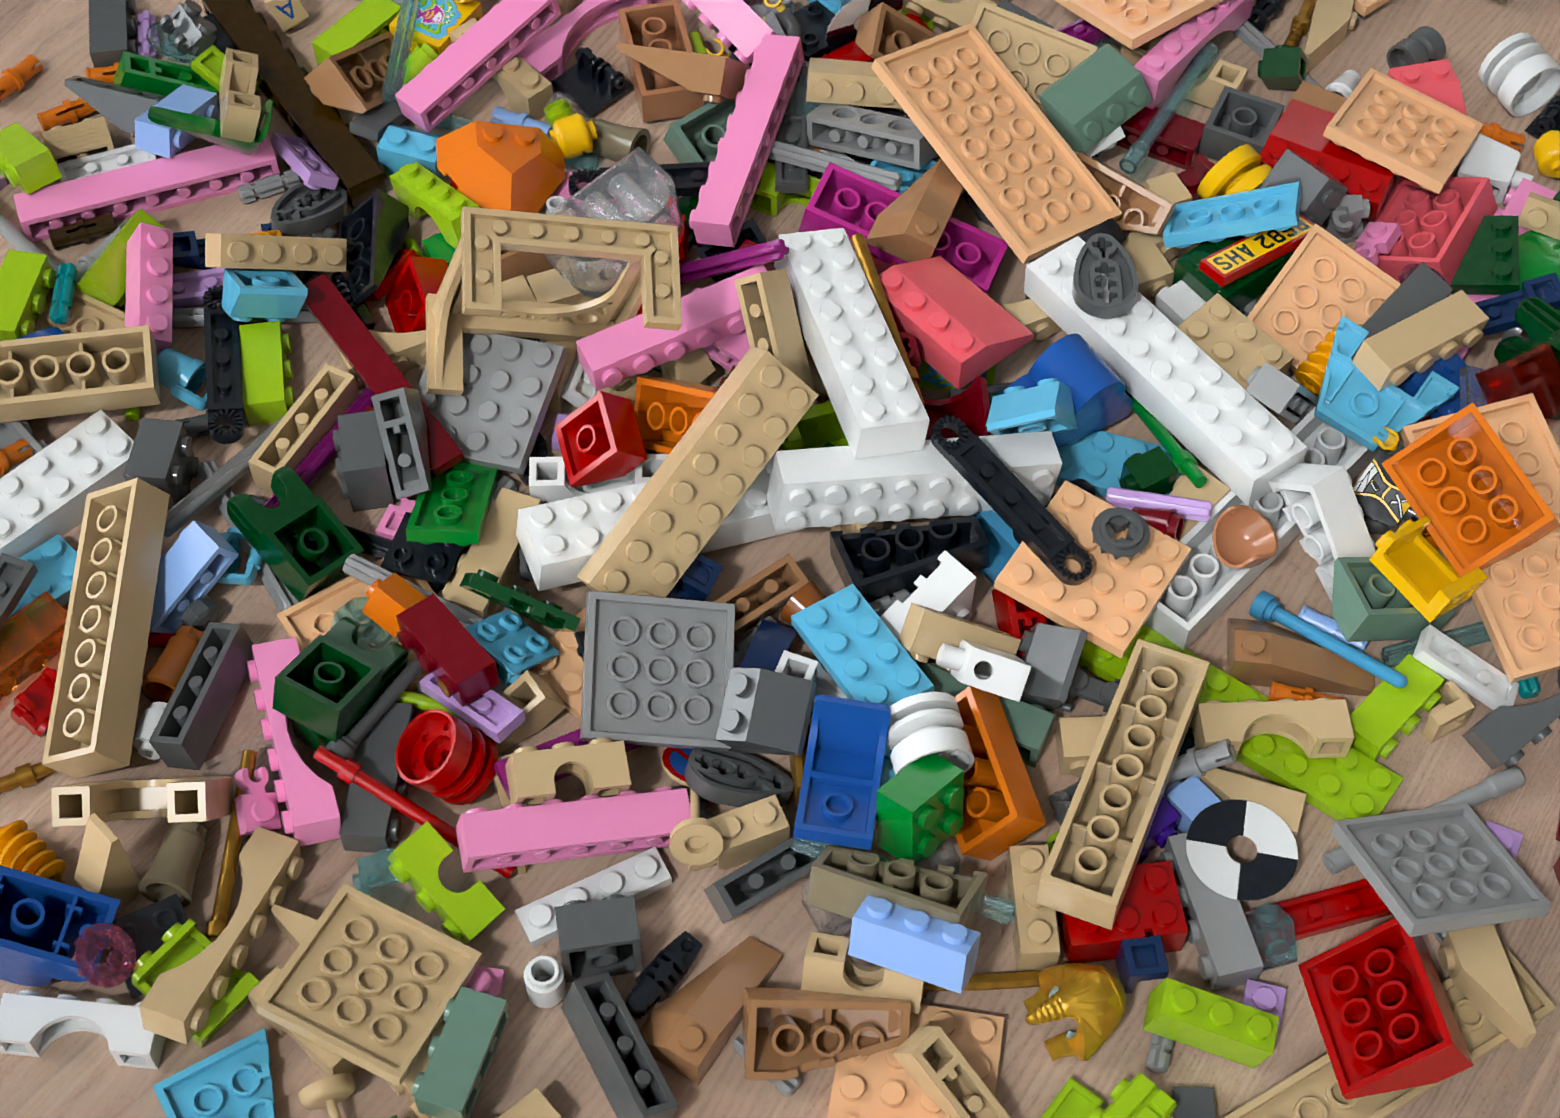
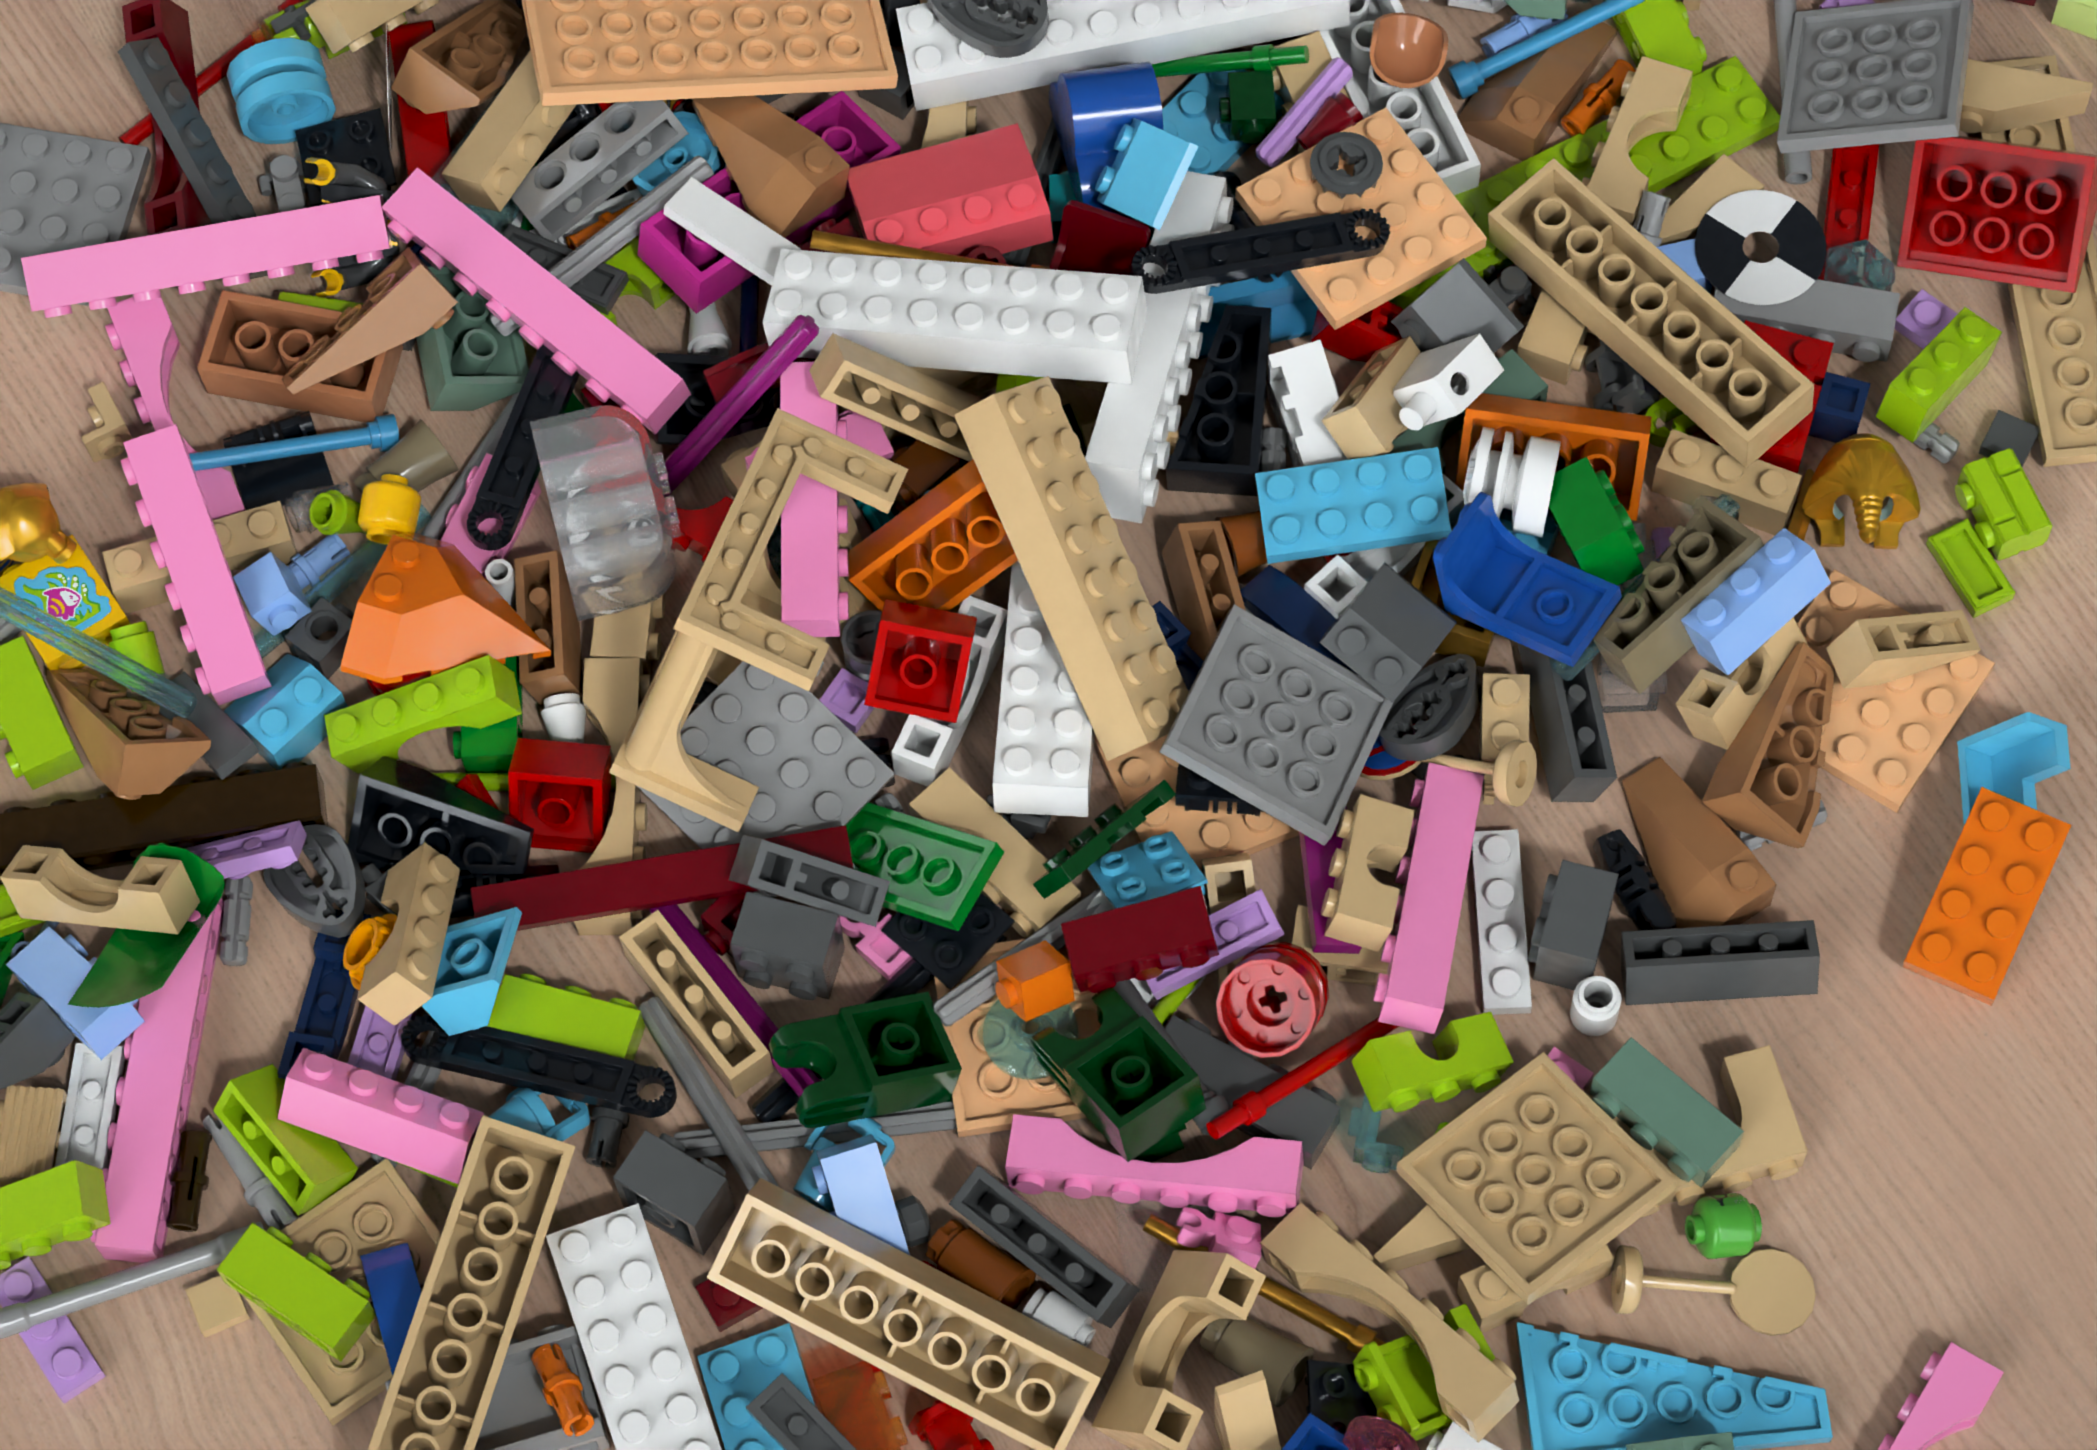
camera: 60 degrees left, 10 degrees up
(63, 293) = (311, 1229): teal axle -> none
(484, 101) = (272, 594): none -> light blue brick
(629, 117) = (380, 434): none -> dark azure piece
(855, 201) = (727, 228): none -> white tile

